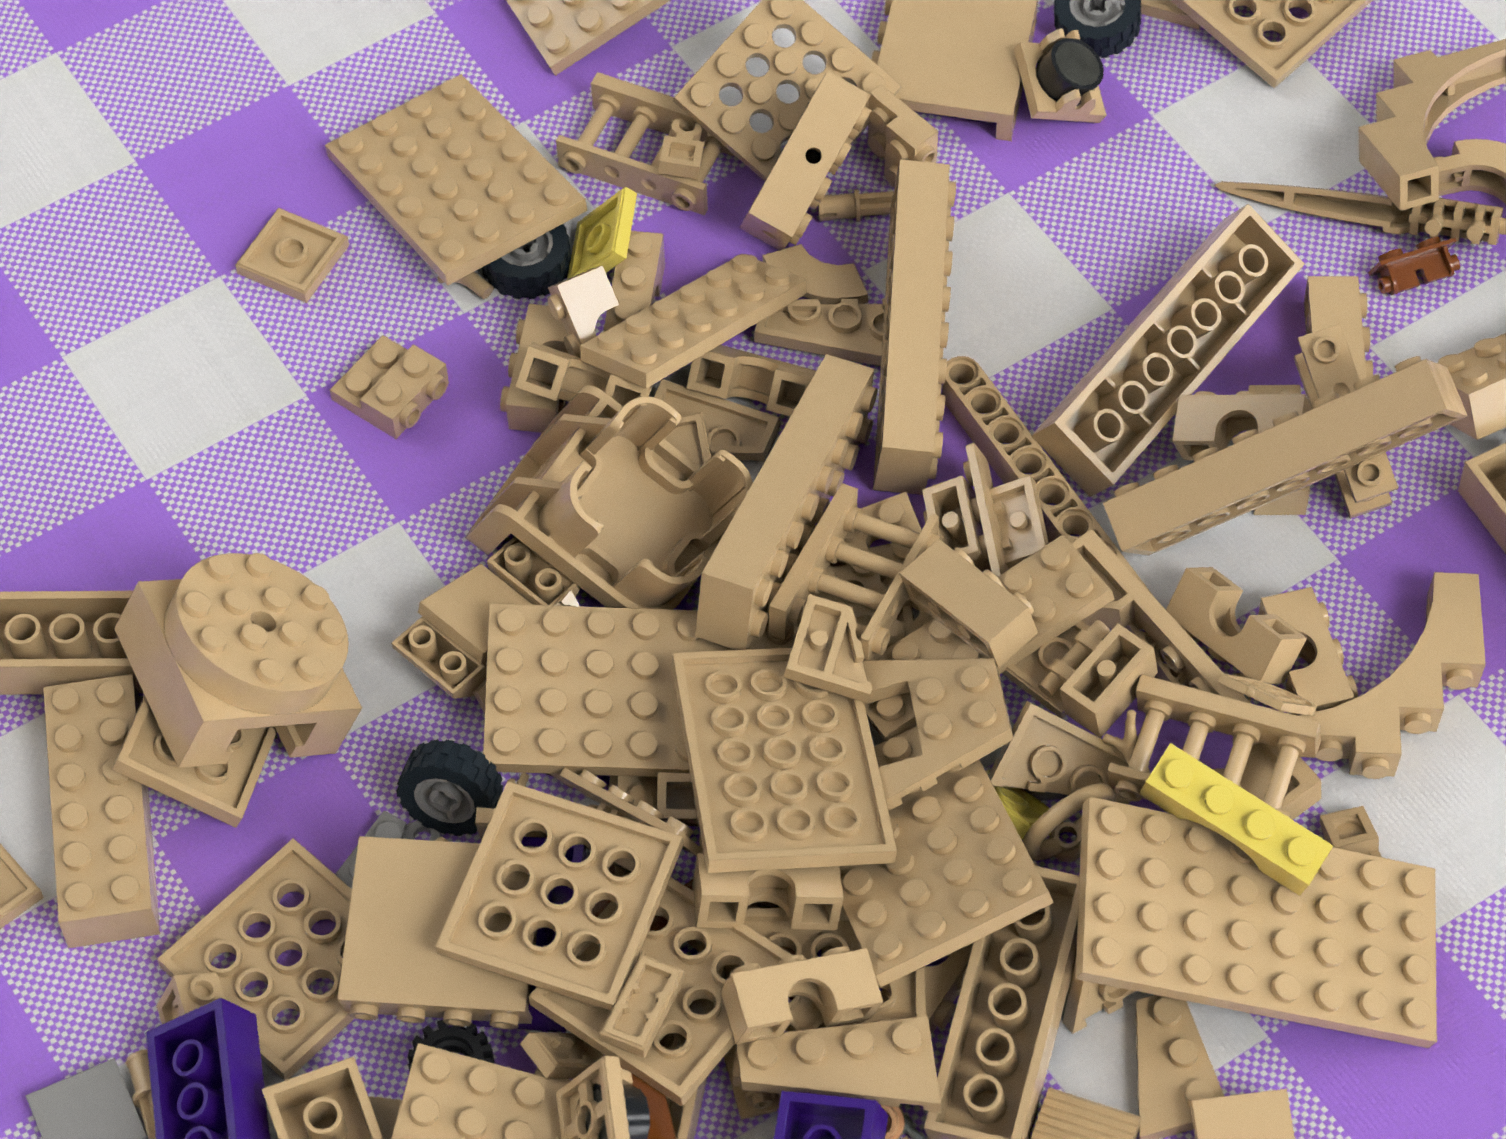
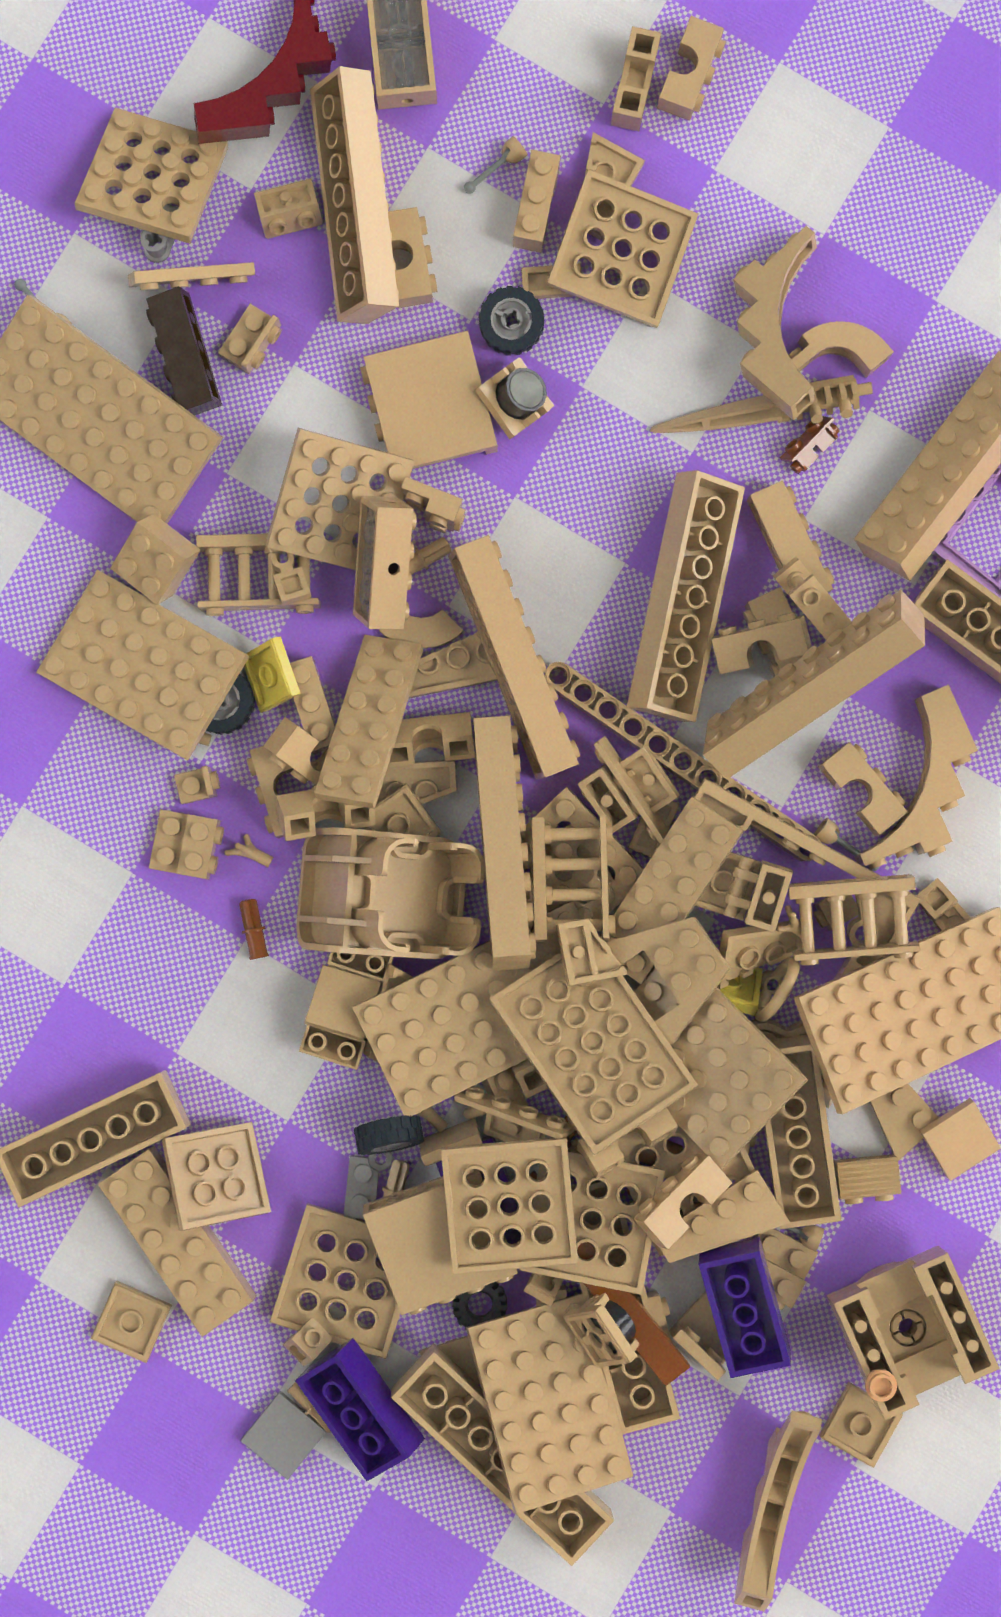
camera: 30 degrees left, 30 degrees up
(237, 651) = (201, 1145): tan piece -> none
(292, 255) = (62, 769): tan tile -> none
(417, 507) = (253, 929): none -> dark orange axle
(444, 330) = (197, 785): none -> tan bracket
(464, 422) = (250, 851): none -> tan bar
(534, 76) = (155, 559): none -> tan brick
(642, 1006) = (593, 1252): tan plate -> none
(970, 602) = (659, 879): tan brick -> none
(1206, 611) = (791, 788): tan arch -> none
(1266, 835) = (868, 968): light yellow arch -> none
(1269, 694) = (872, 859): tan window -> none

